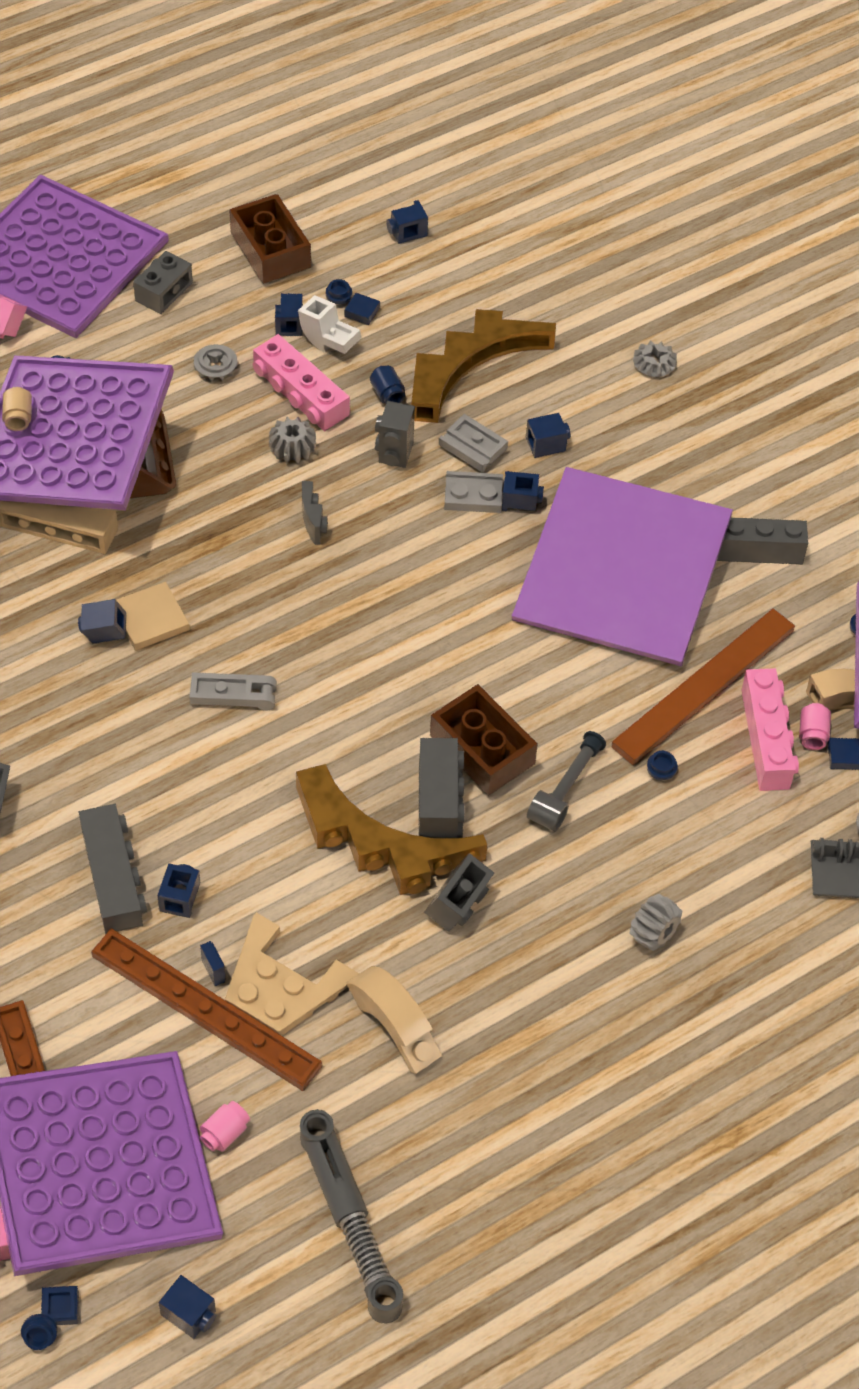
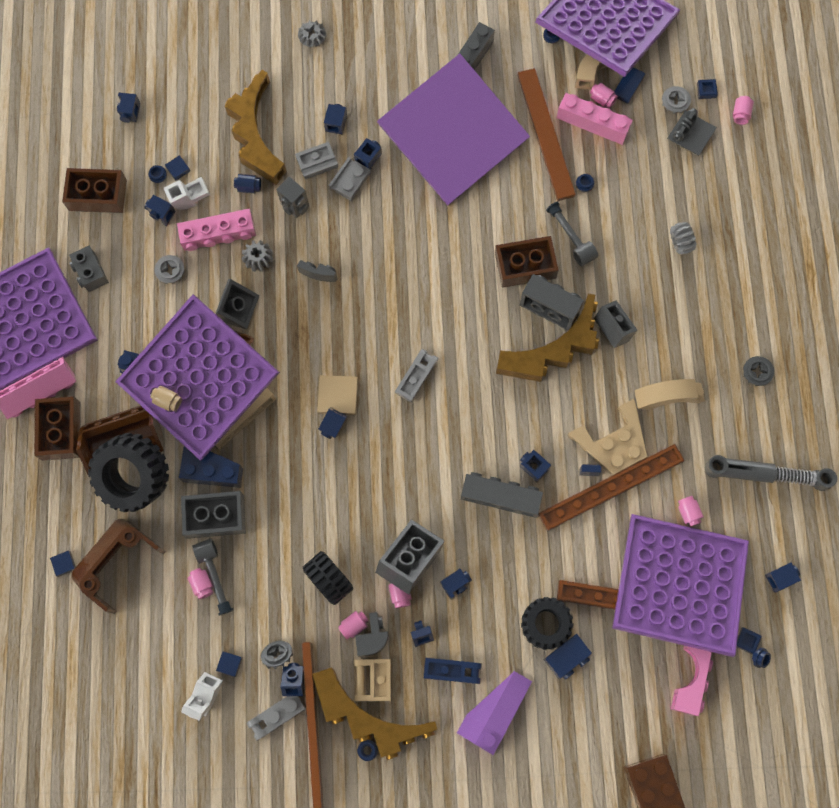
camera: 55 degrees left, 20 degrees up
(208, 446) = (237, 304): none -> dark grey slope
(519, 1117) = (765, 367): none -> dark grey gear

